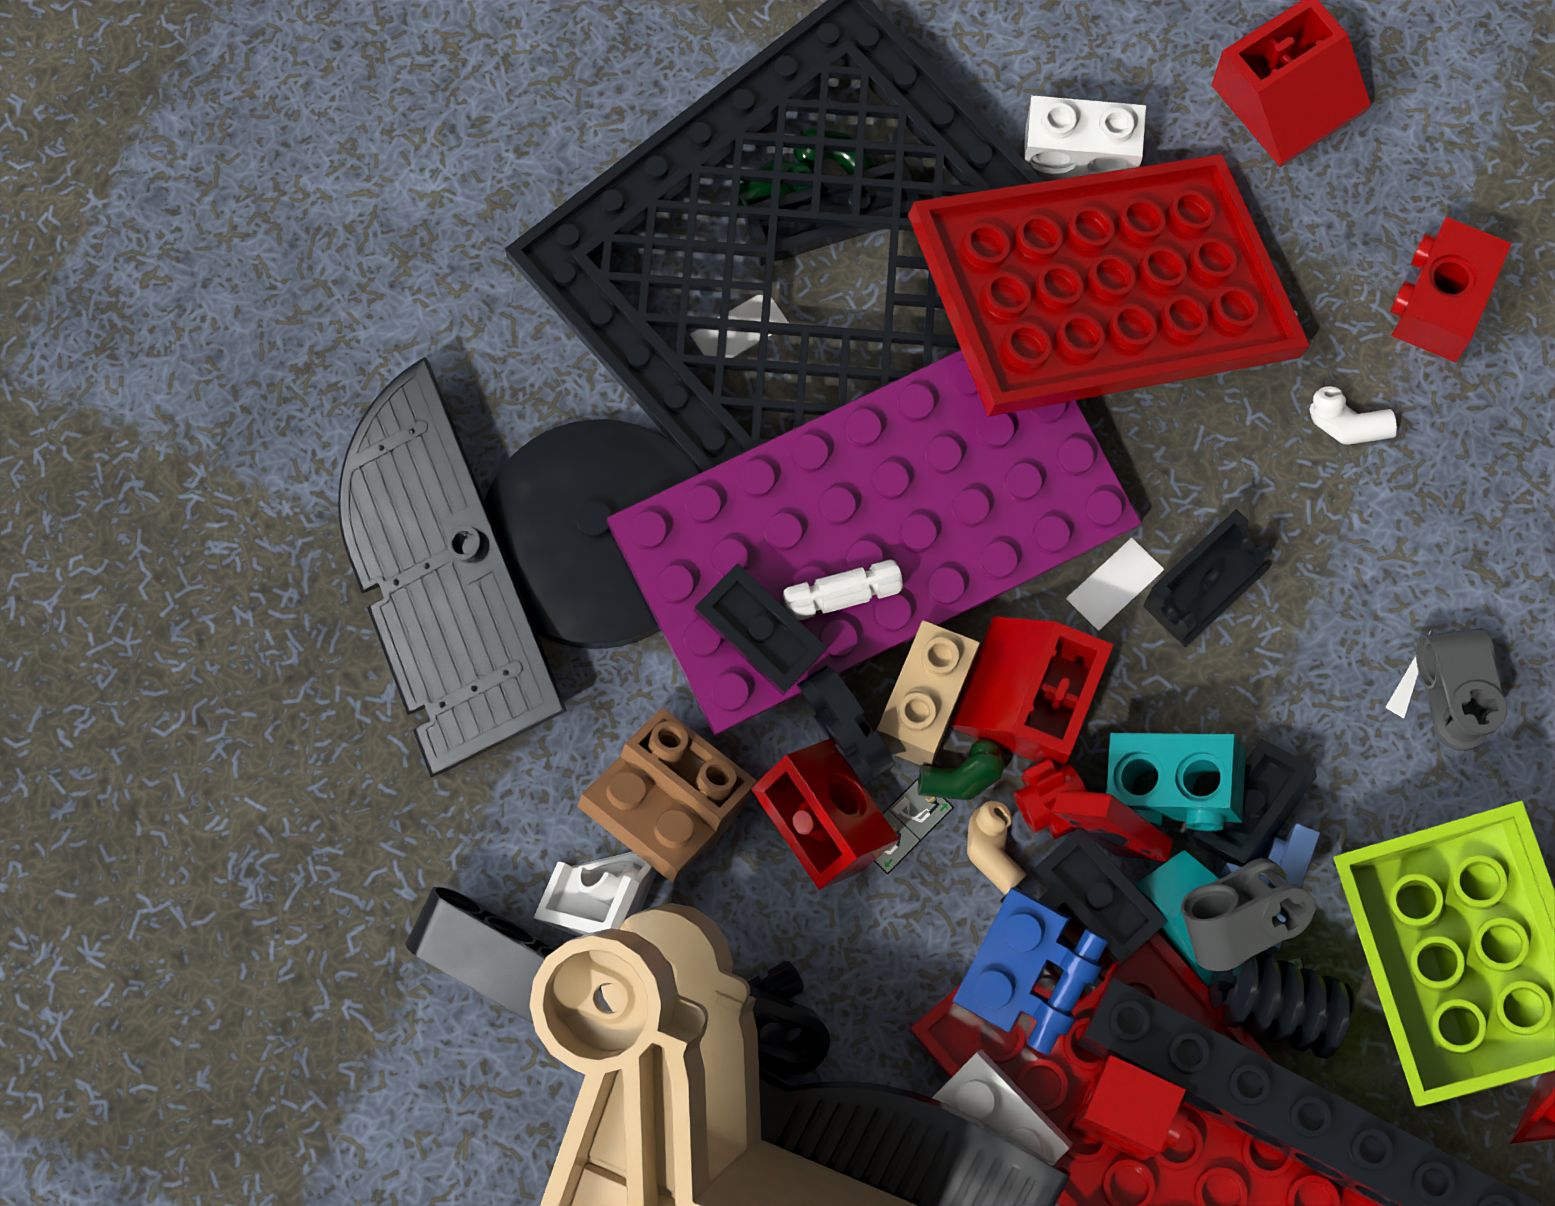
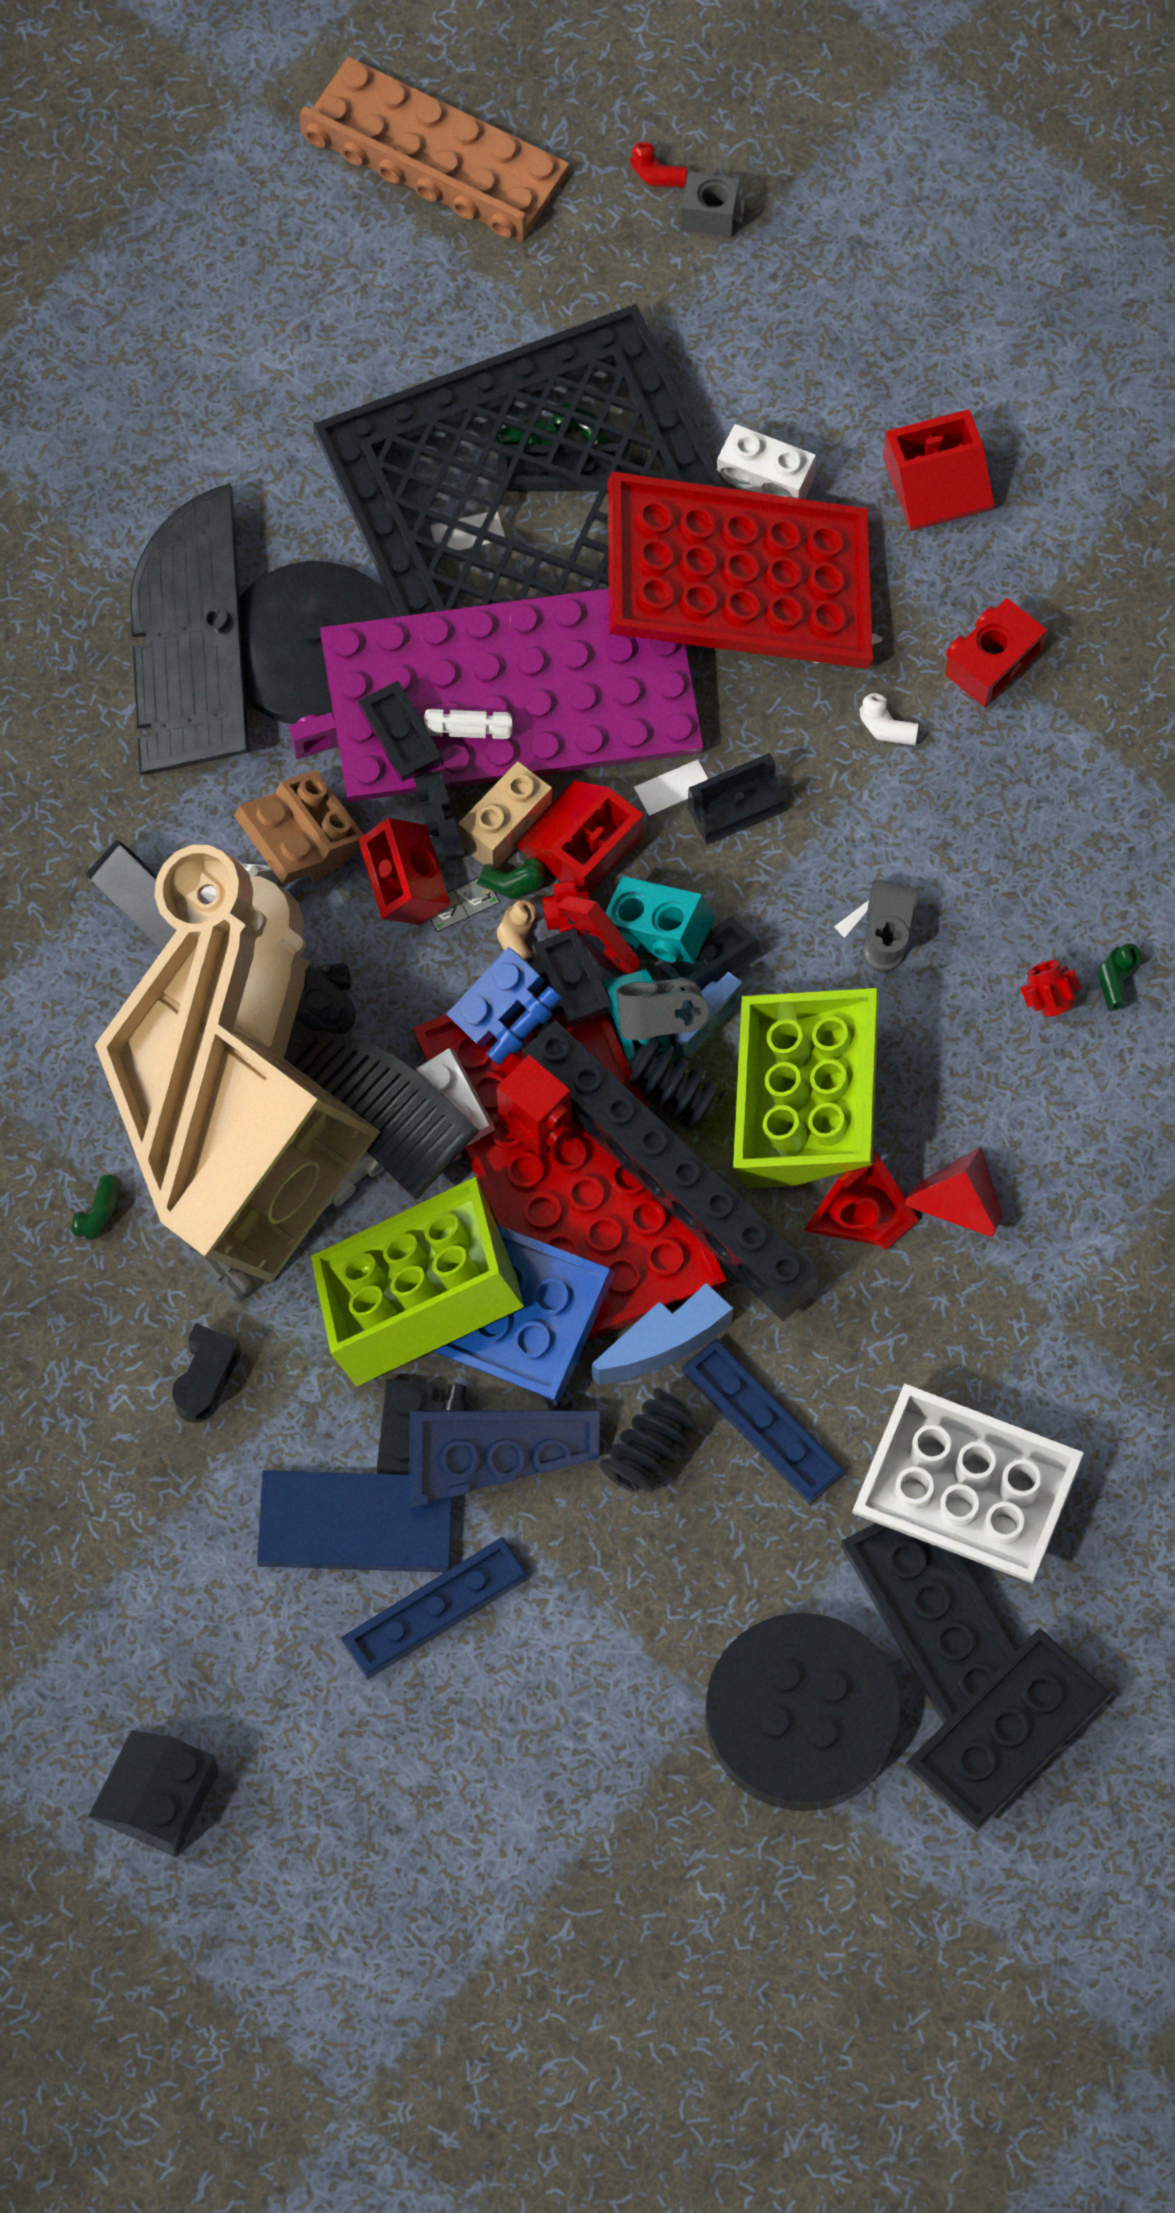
camera: 15 degrees right, 5 degrees down
(640, 657) = (313, 735): none -> magenta plate

